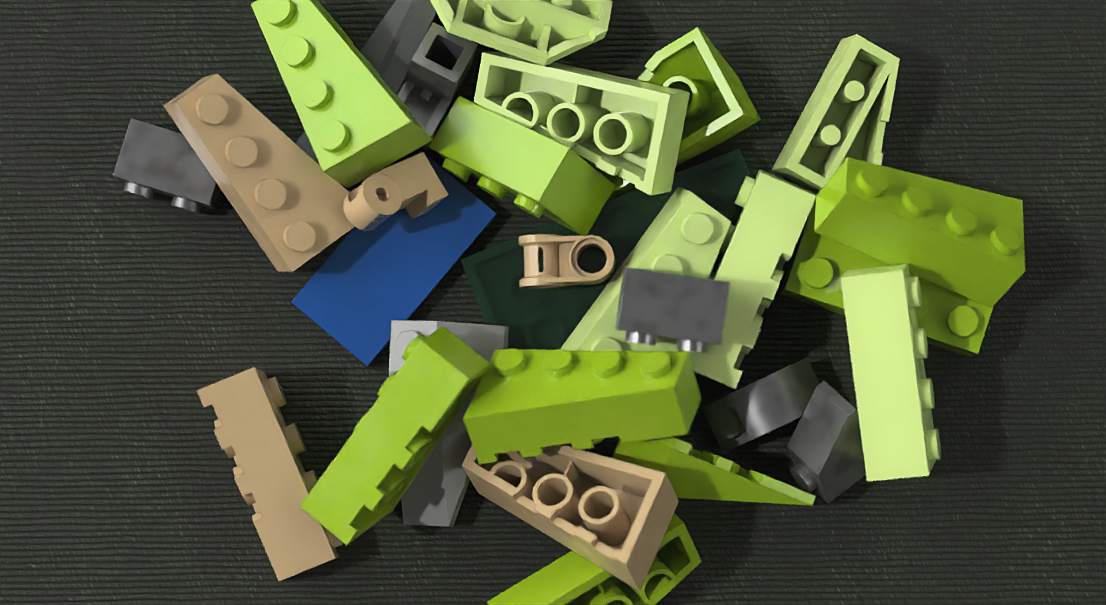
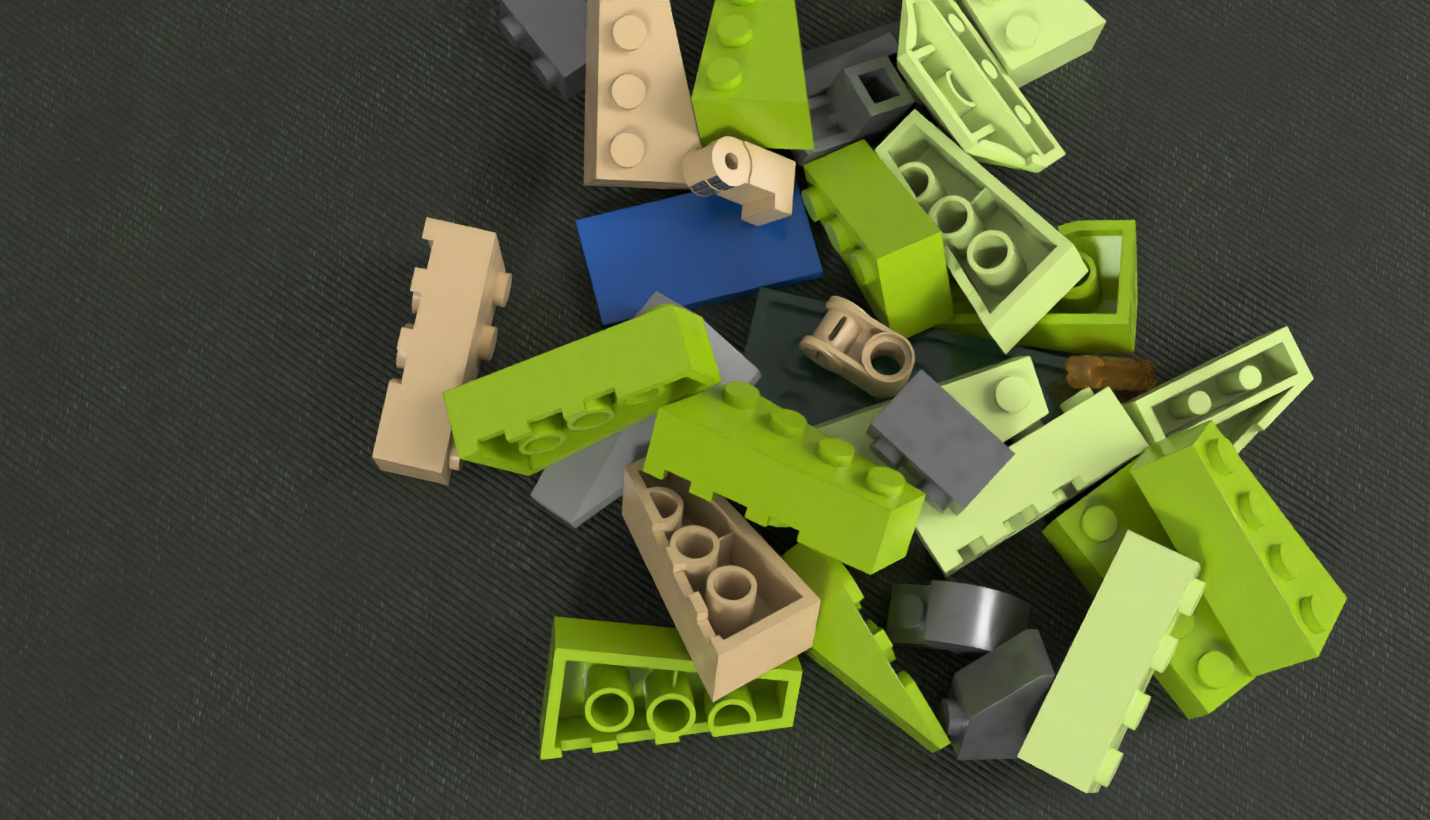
camera: 30 degrees right, 10 degrees down
(754, 148) = (1110, 371): none -> clear orange axle

